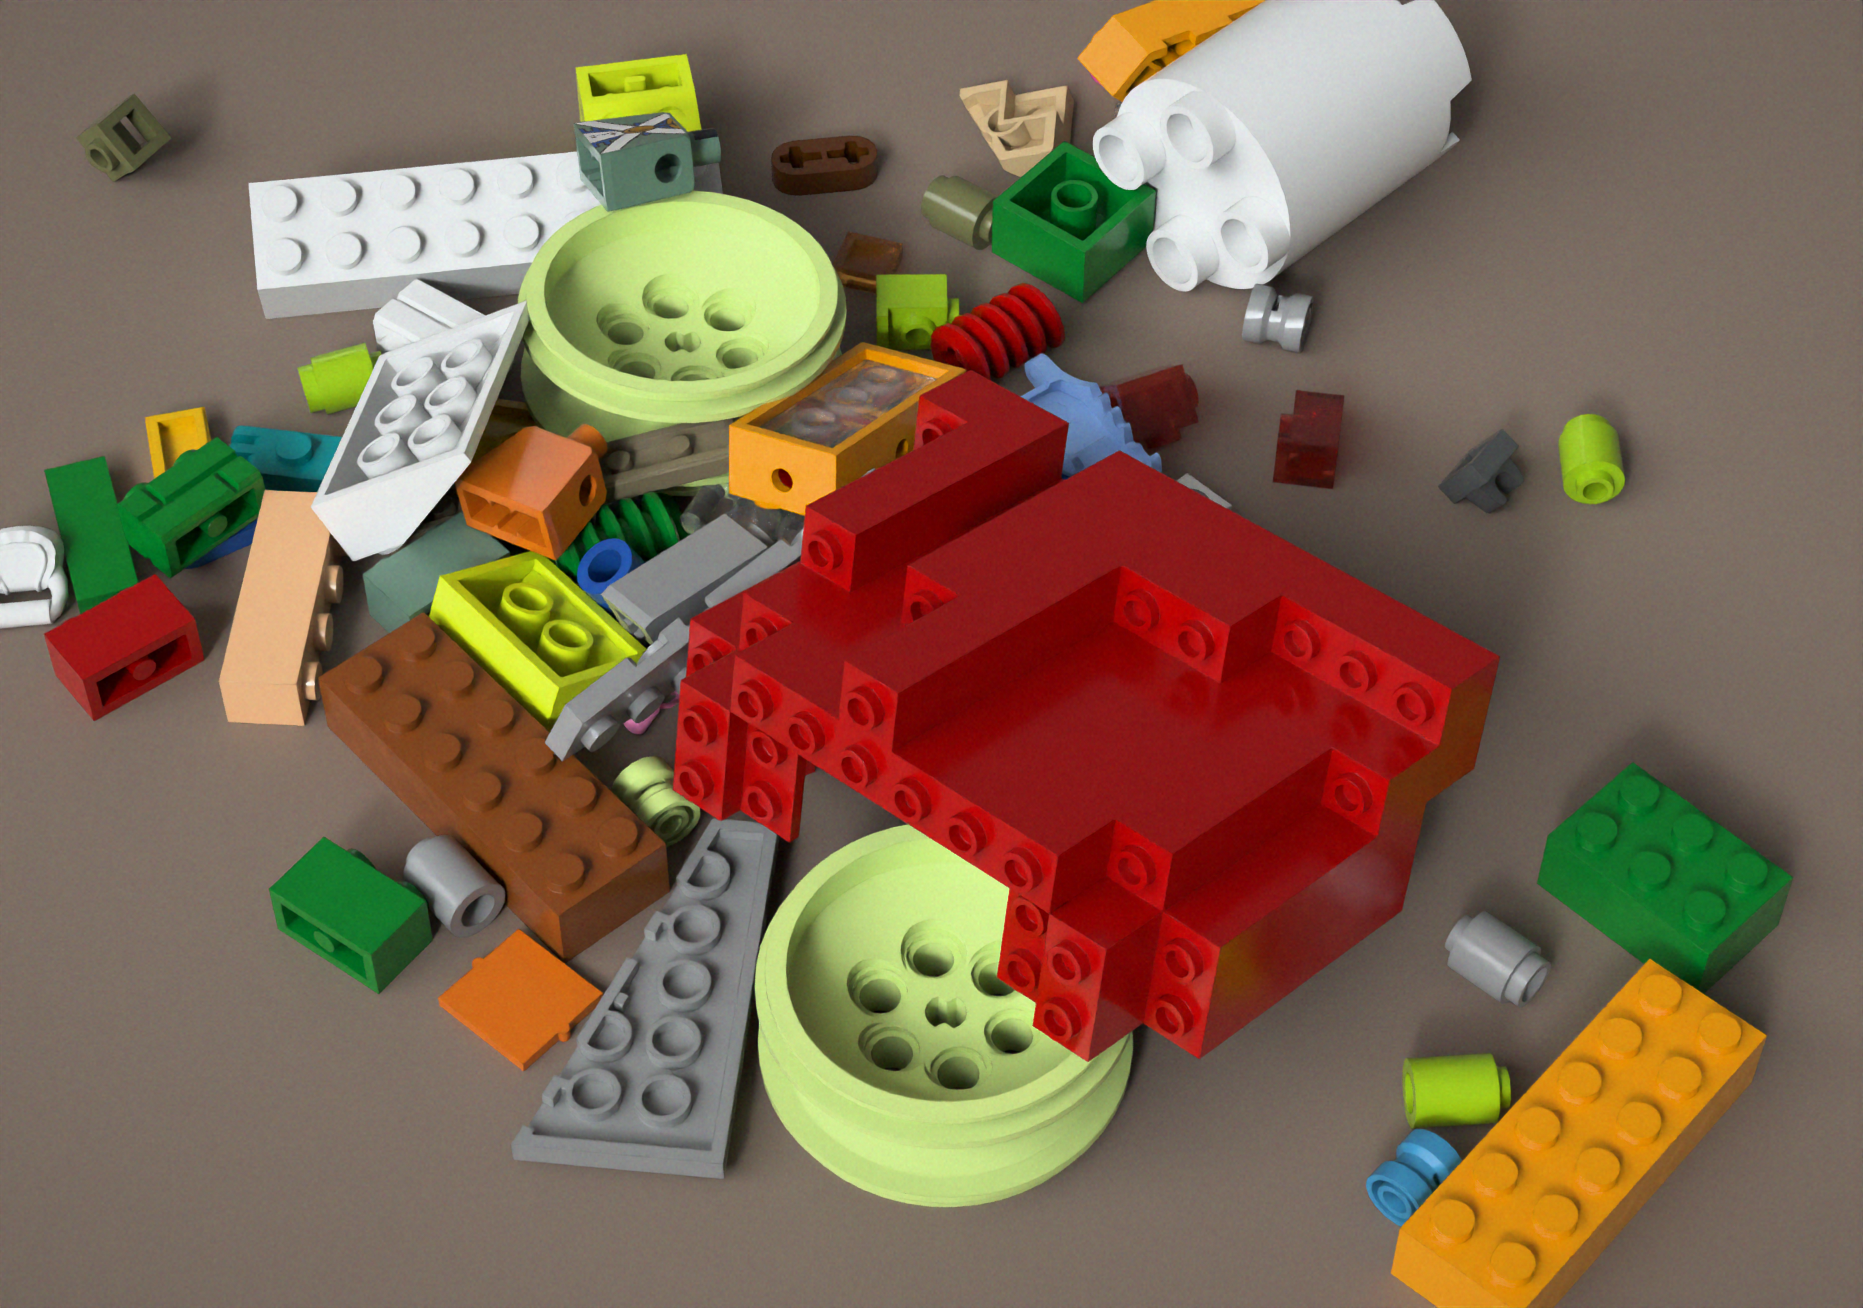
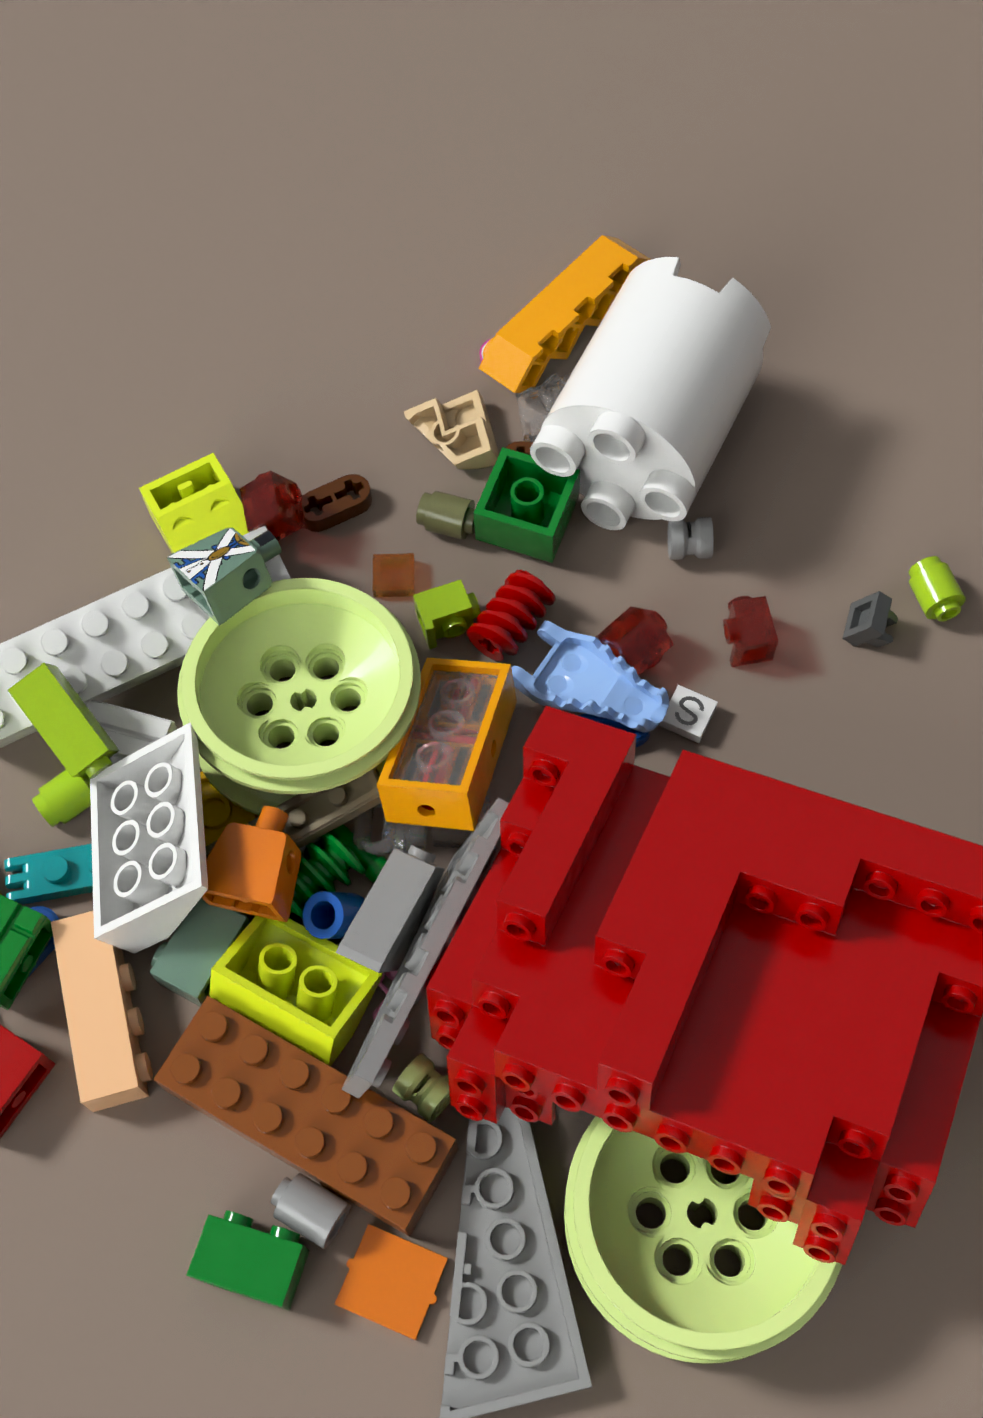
camera: 15 degrees left, 15 degrees up
(373, 274) = (64, 721): none -> lime brick
(746, 134) = (274, 504): none -> clear red brick

